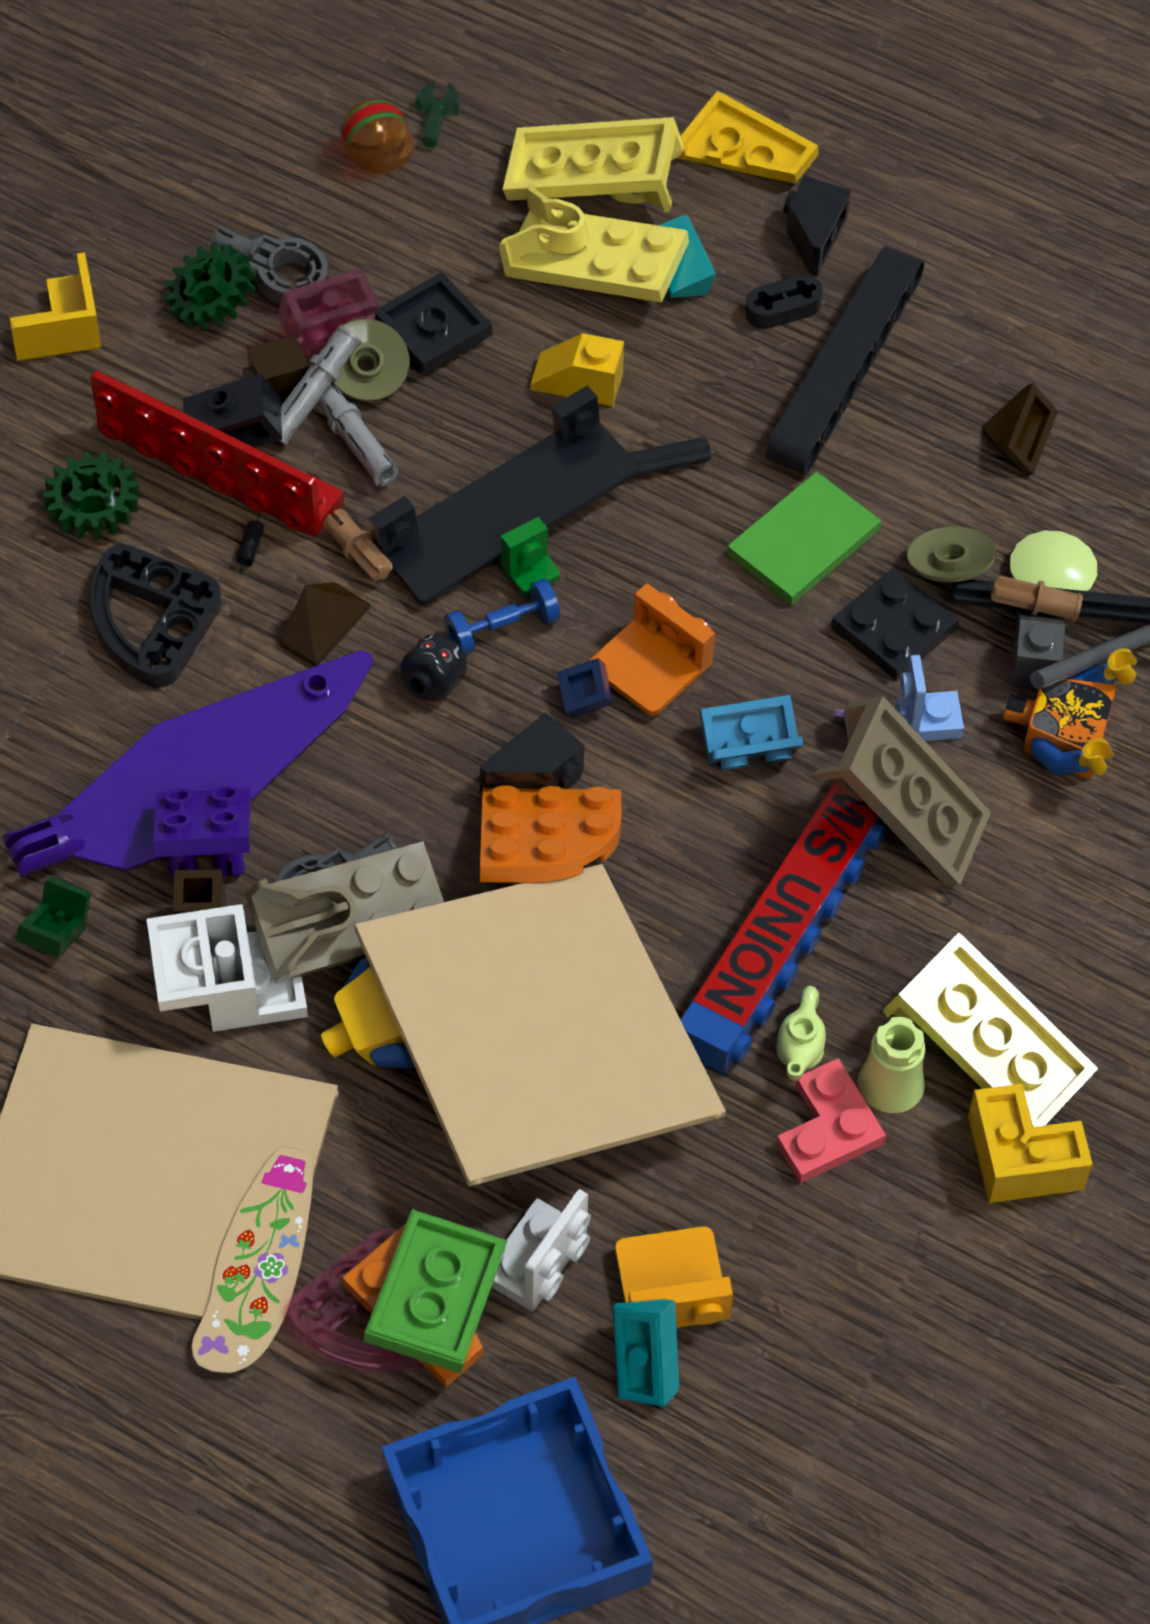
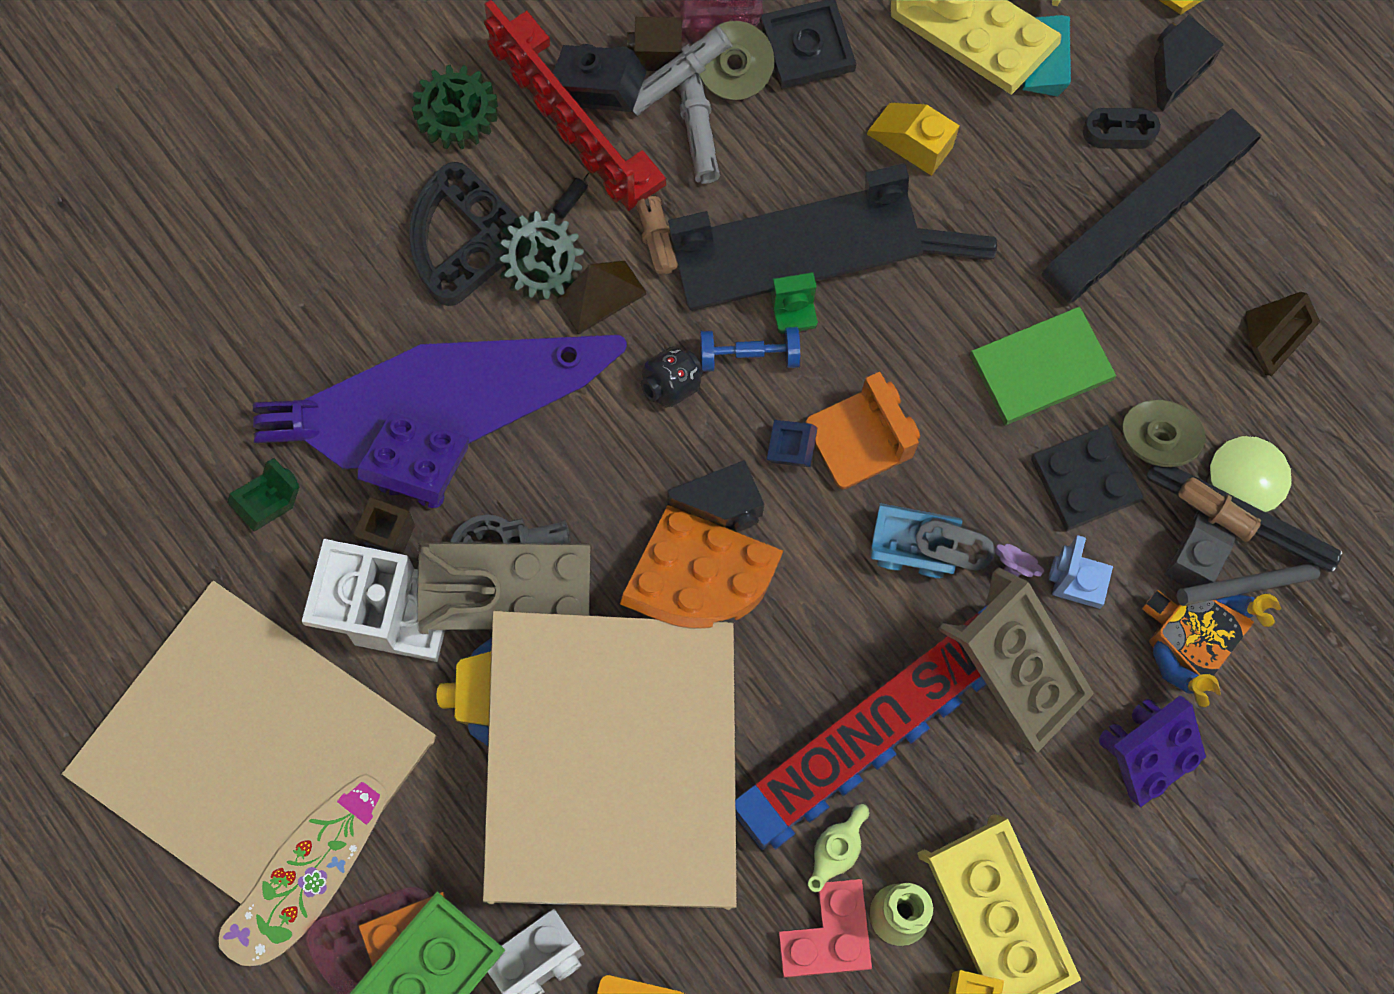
camera: 20 degrees right, 15 degrees up
(245, 600) = (530, 242): none -> gear
(791, 706) = (952, 553): none -> beam
(1074, 832) = (1157, 750): none -> dark purple plate

